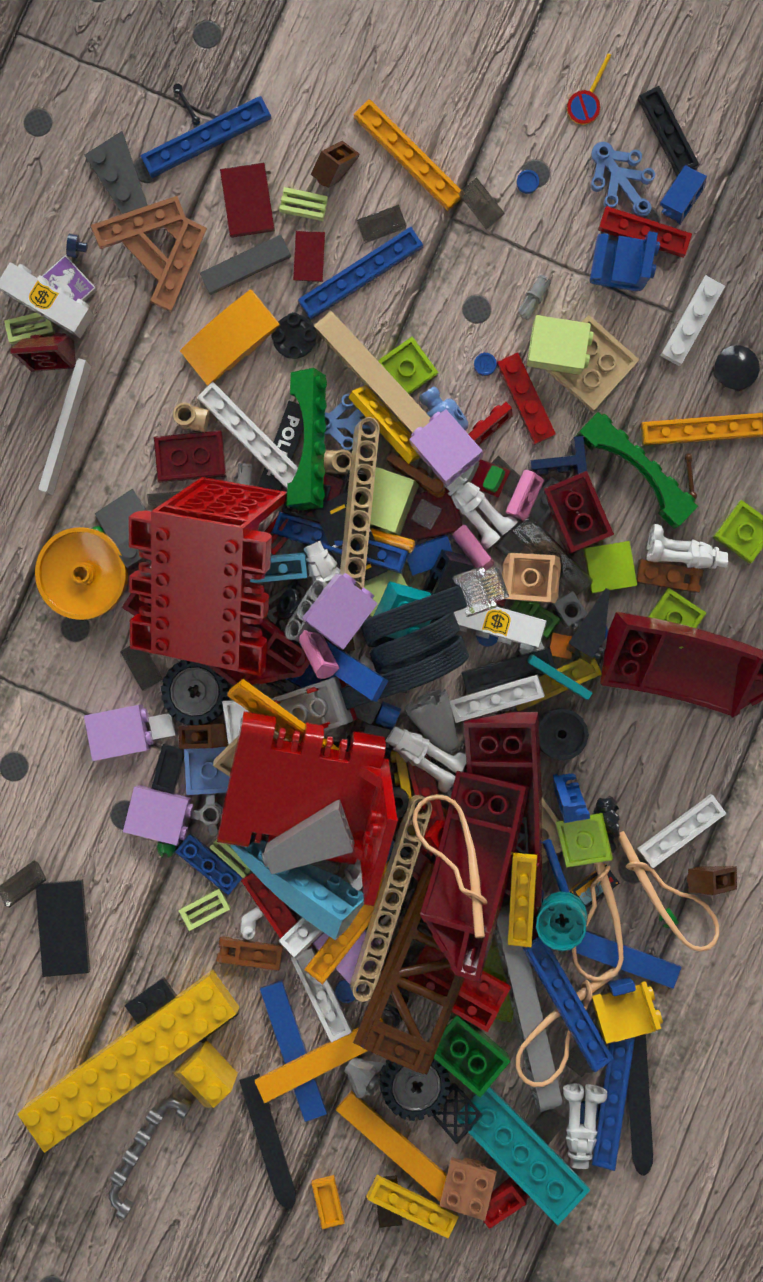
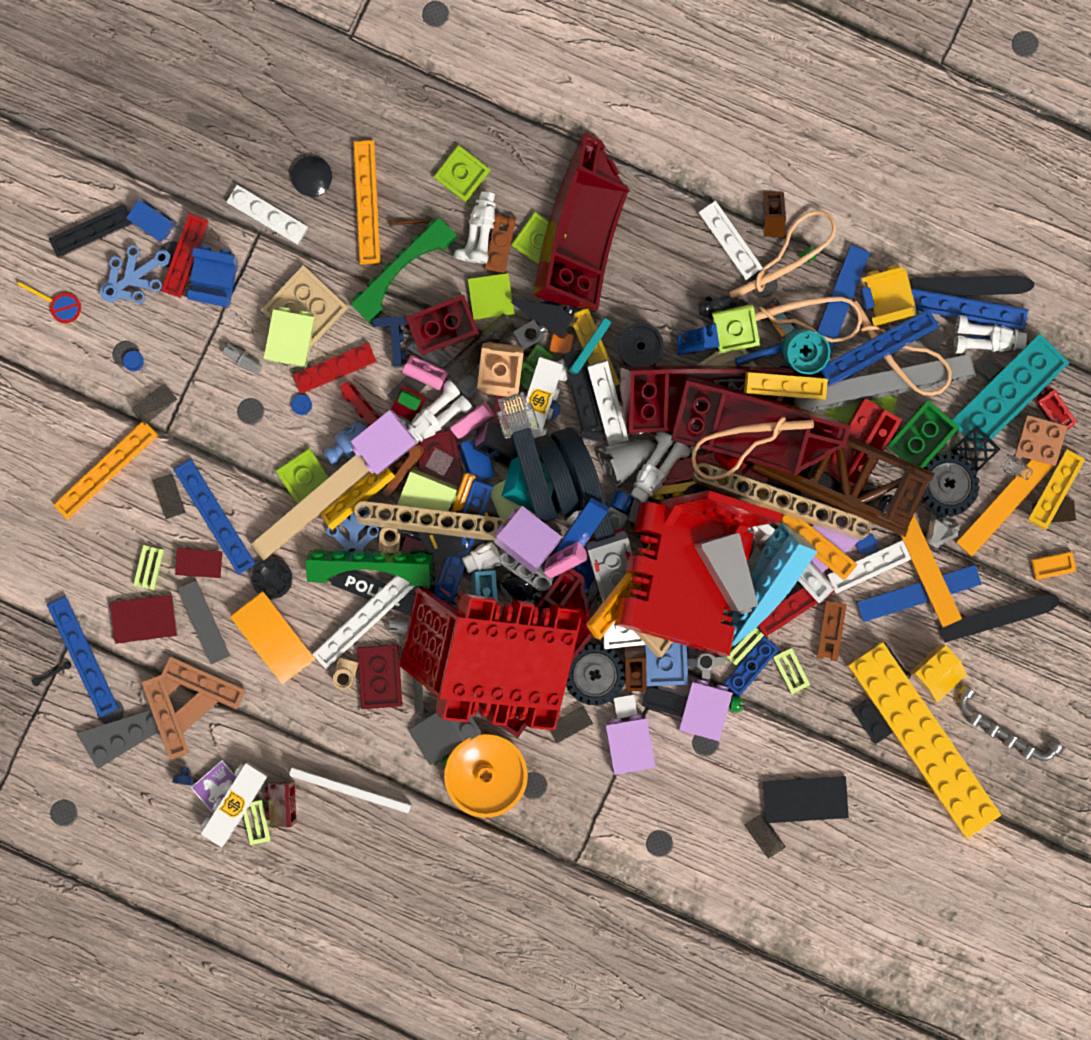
camera: 90 degrees left, 0 degrees up
(248, 923) = (804, 631): white arm -> none
(334, 163) = (113, 537): reddish brown slope -> none
(437, 1159) = (1013, 465): none -> clear cone
(456, 680) = (591, 438): none -> black tile

